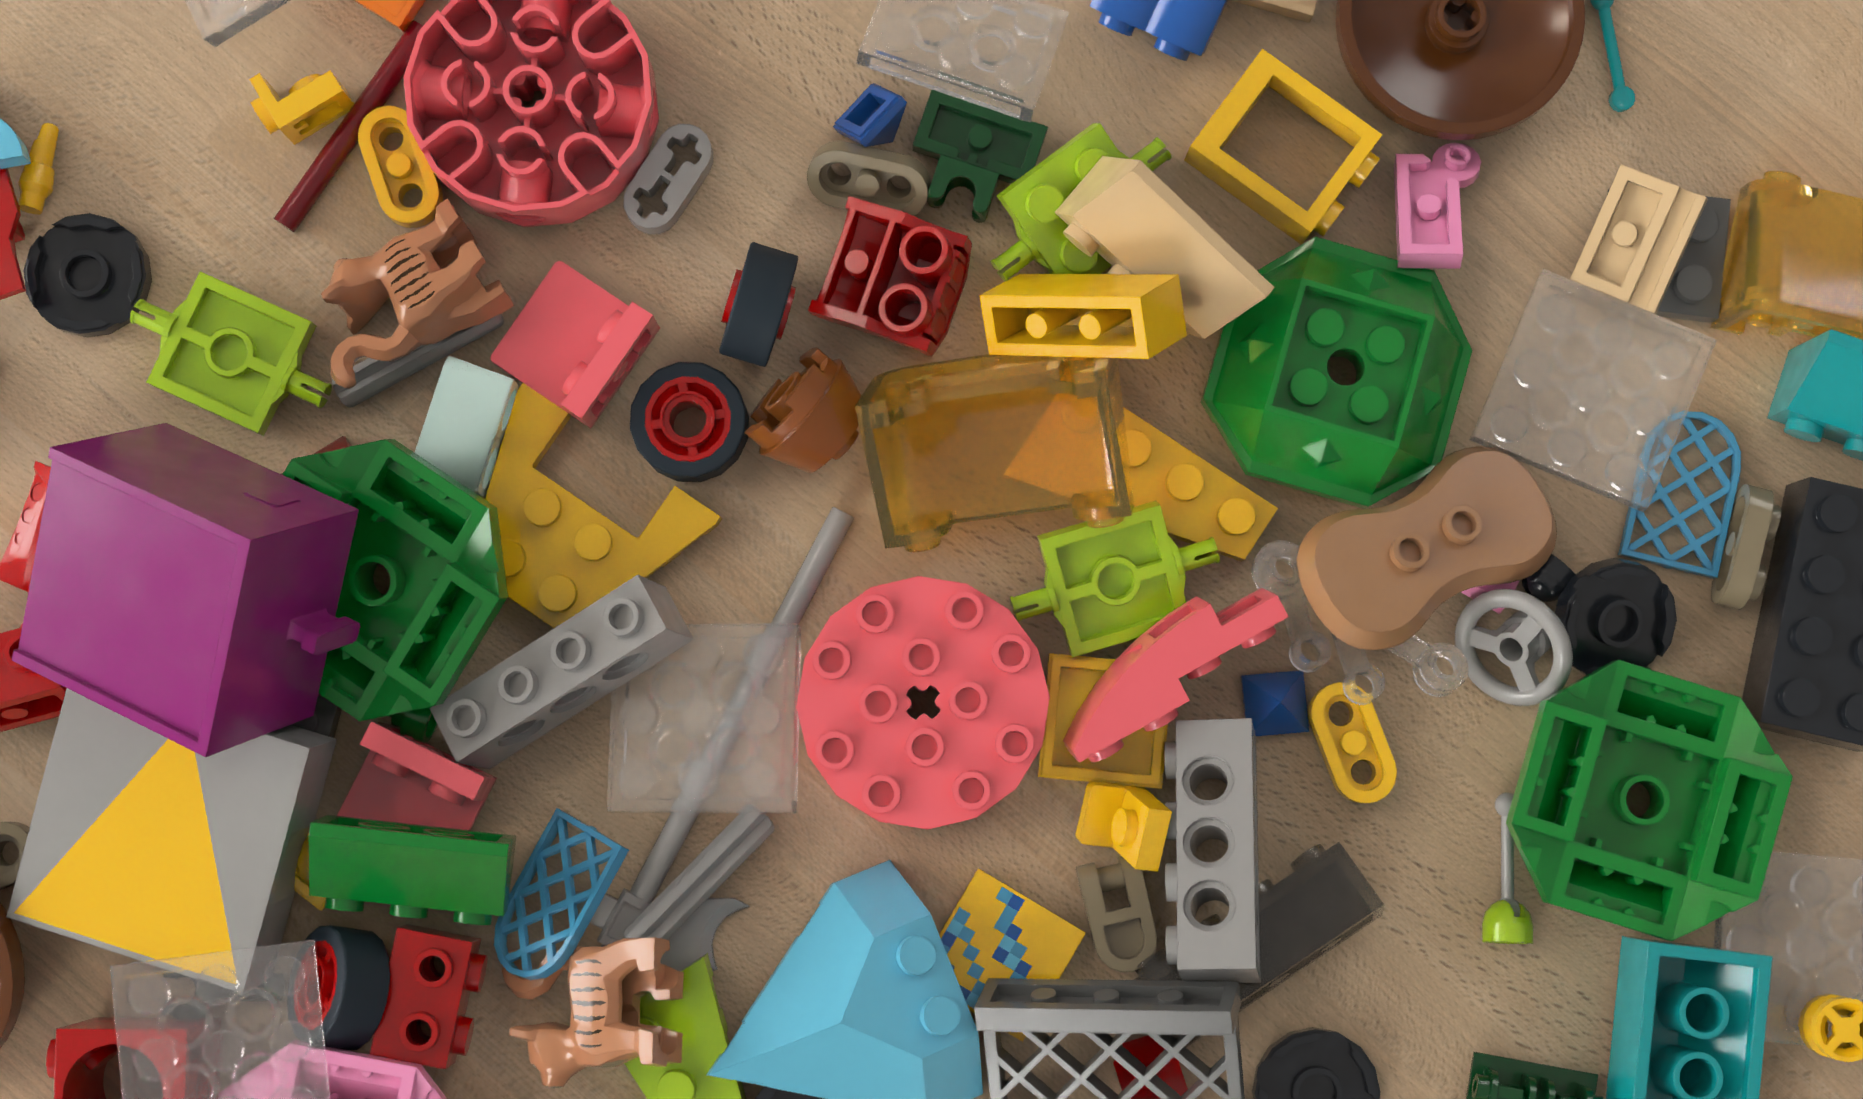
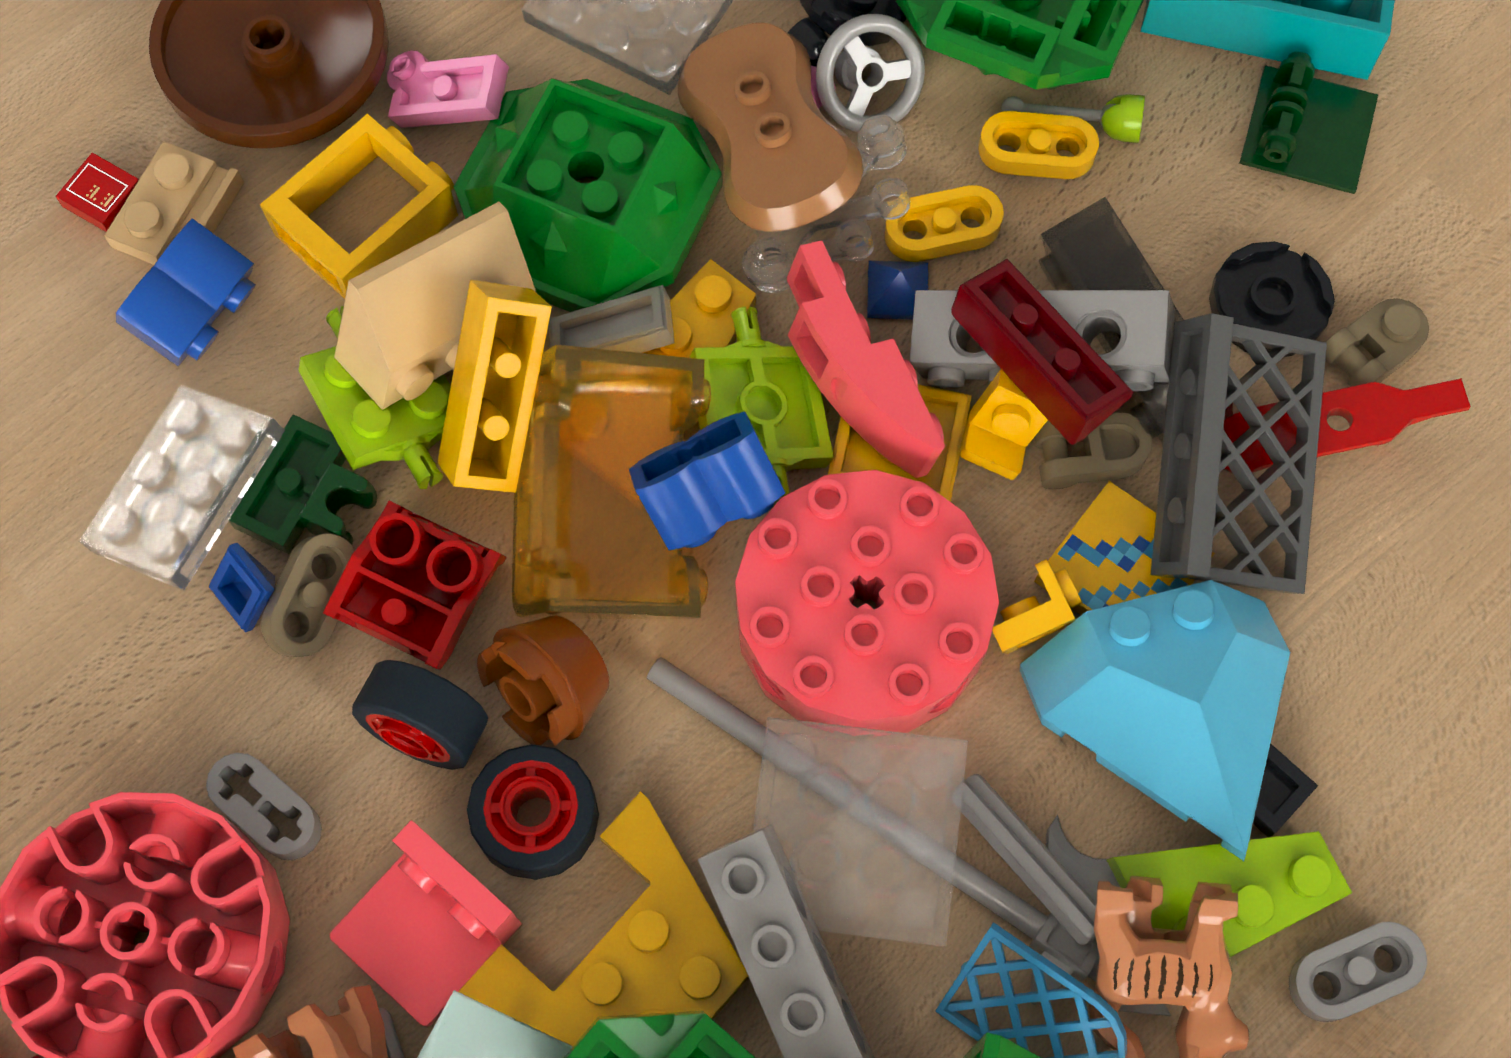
camera: 80 degrees left, 15 degrees down
(923, 866) = (1029, 620): none -> yellow bracket
(1012, 535) = (707, 482): none -> blue brick
(1179, 420) = (622, 324): none -> light grey tile
(1188, 846) = (1039, 351): none -> dark red slope
(1464, 833) = (1036, 144): none -> yellow plate

